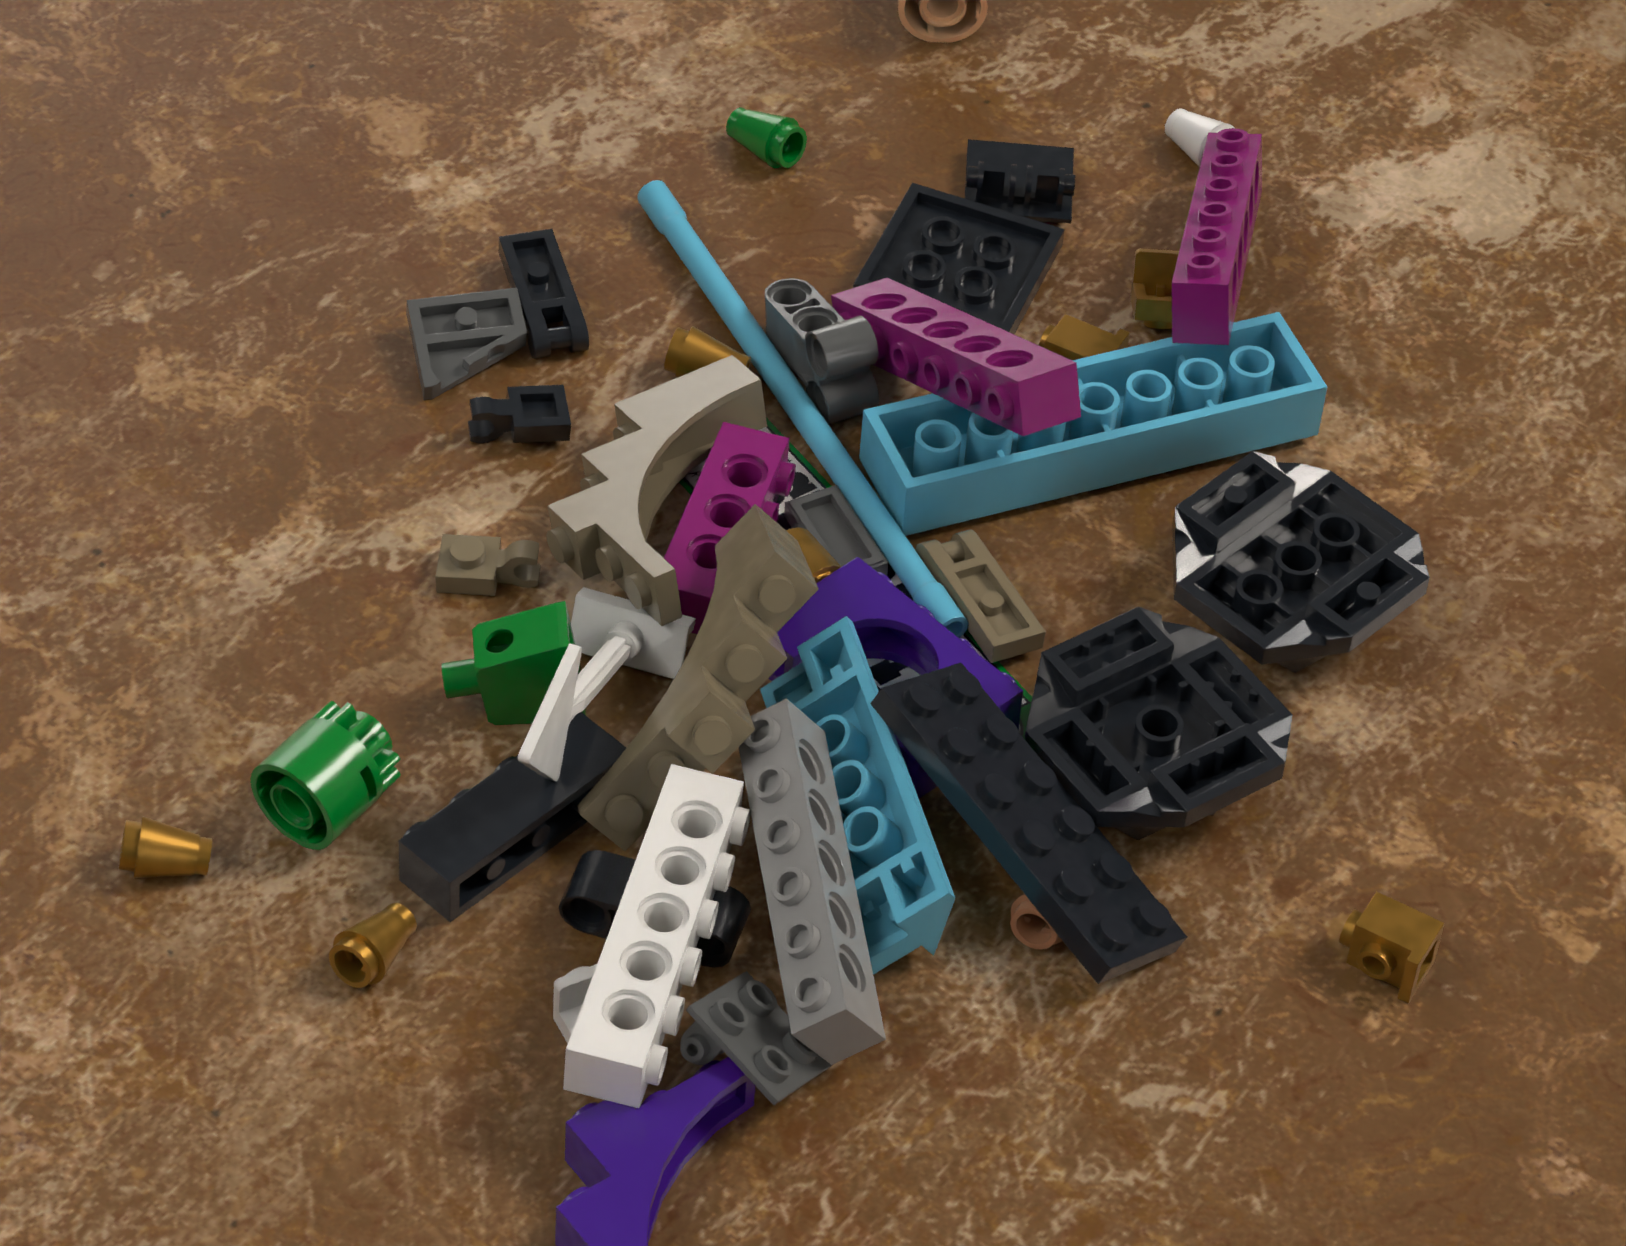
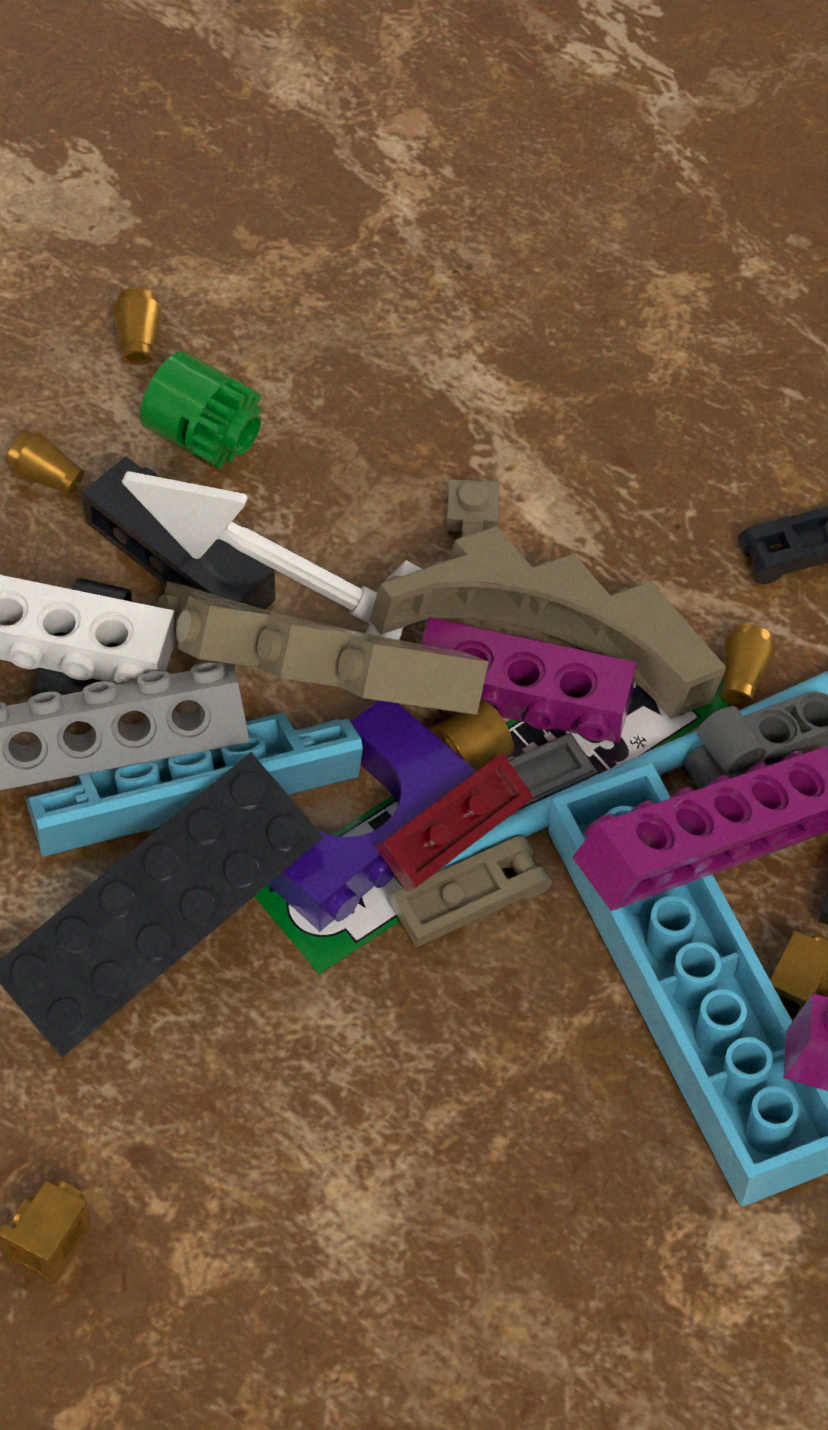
camera: 90 degrees right, 10 degrees up
(463, 335) = (744, 479): dark grey wing -> none
(512, 663) = (329, 517): green torso -> none
(528, 412) = (653, 536): black plate -> none
(925, 574) = (454, 822): none -> dark red plate
(1154, 723) = (293, 967): black piece -> none
(1292, 561) = (521, 1095): black piece -> none

